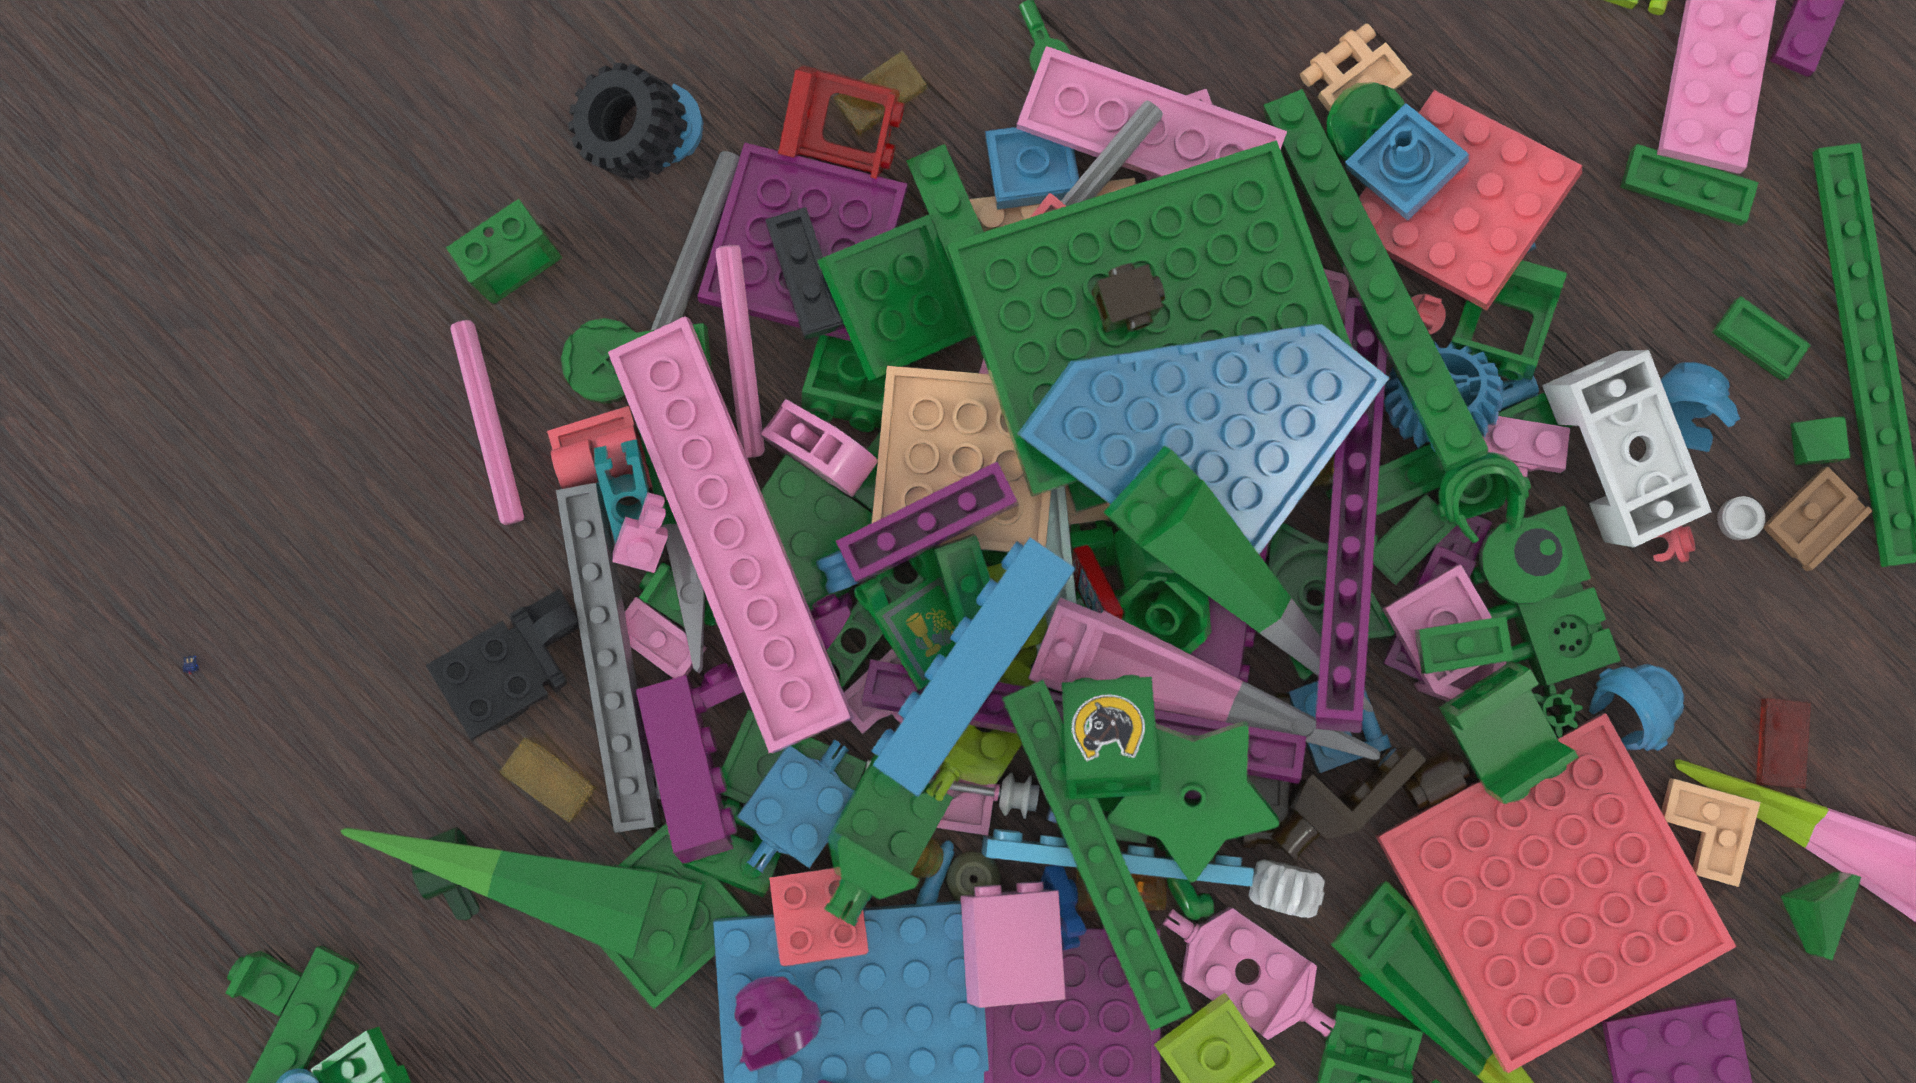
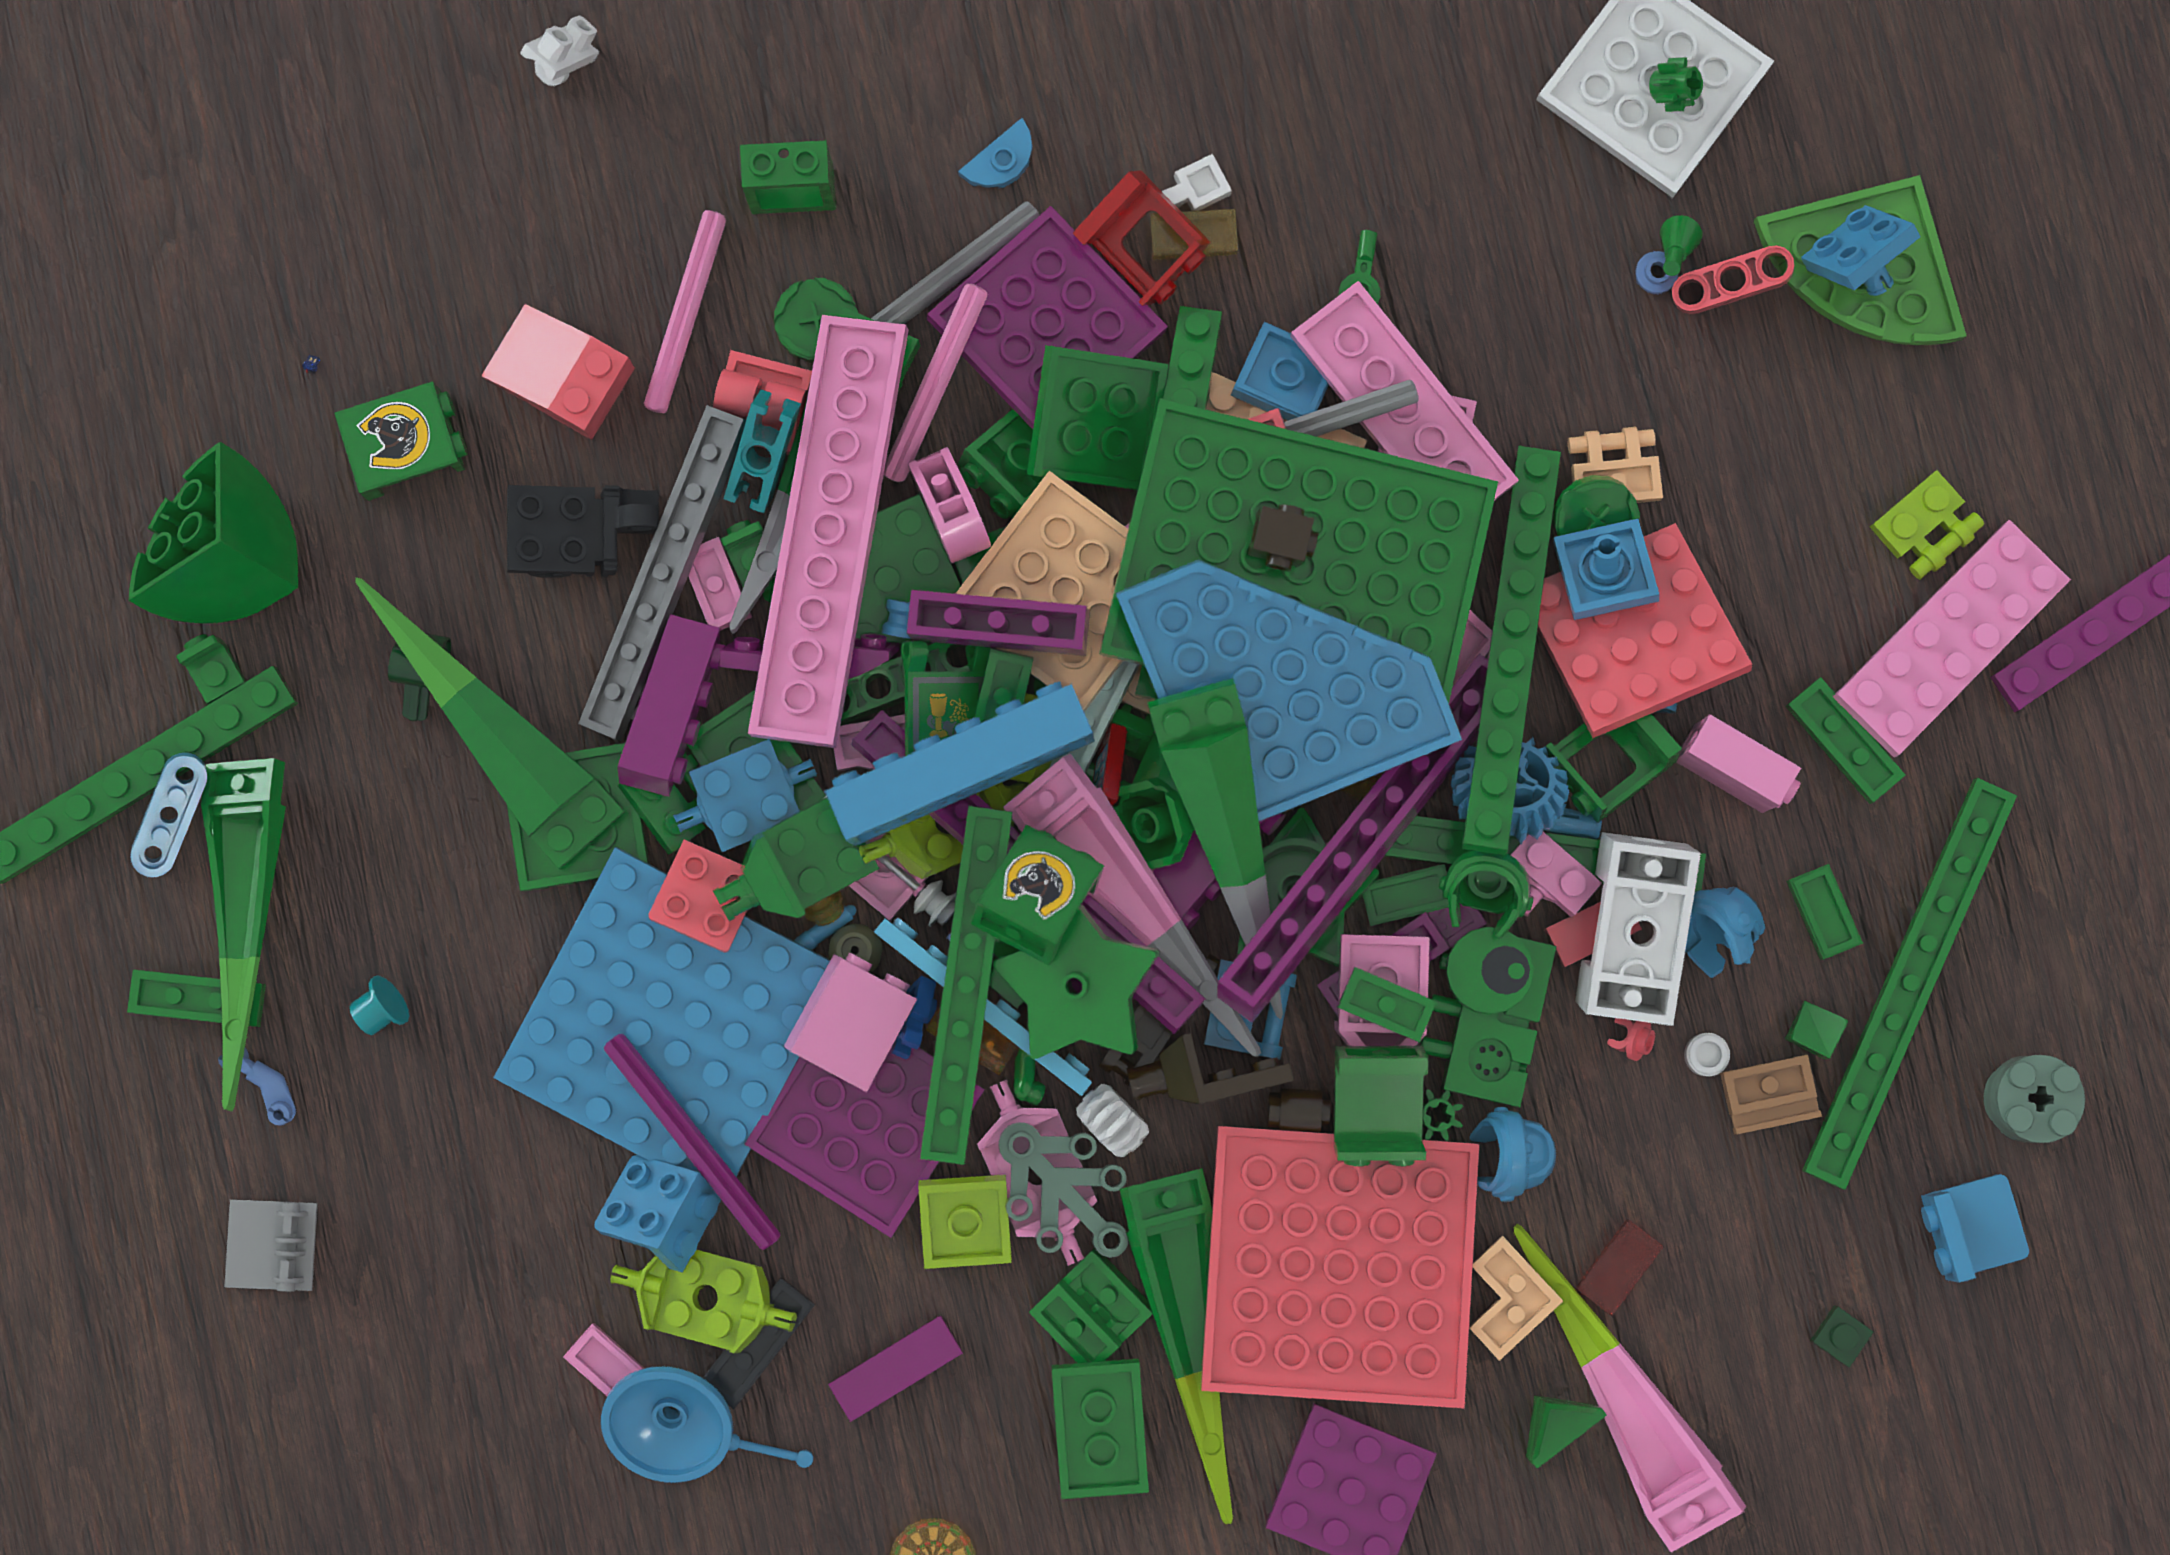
camera: 30 degrees right, 0 degrees up
(202, 874) = (217, 546): none -> green brick
(242, 263) = (562, 50): none -> white hips
(306, 681) = (400, 438): none -> green panel
(410, 538) = (559, 370): none -> slope
(548, 779) = (550, 645): clear yellow plate -> none
(601, 111) = (945, 105): black tyre -> none
(643, 539) = (754, 491): bright pink plate -> none
(774, 1021) = (614, 958): magenta helmet -> none
(798, 256) = (1034, 328): black tile -> none
(859, 49) = (1199, 185): none -> white plate
(1276, 973) = (1059, 1183): none -> sand green plant
(1431, 311) = (1544, 711): coral plate -> none
(1576, 483) = (1576, 935): none -> coral tile
(1621, 257) = (1739, 765): none -> bright pink brick

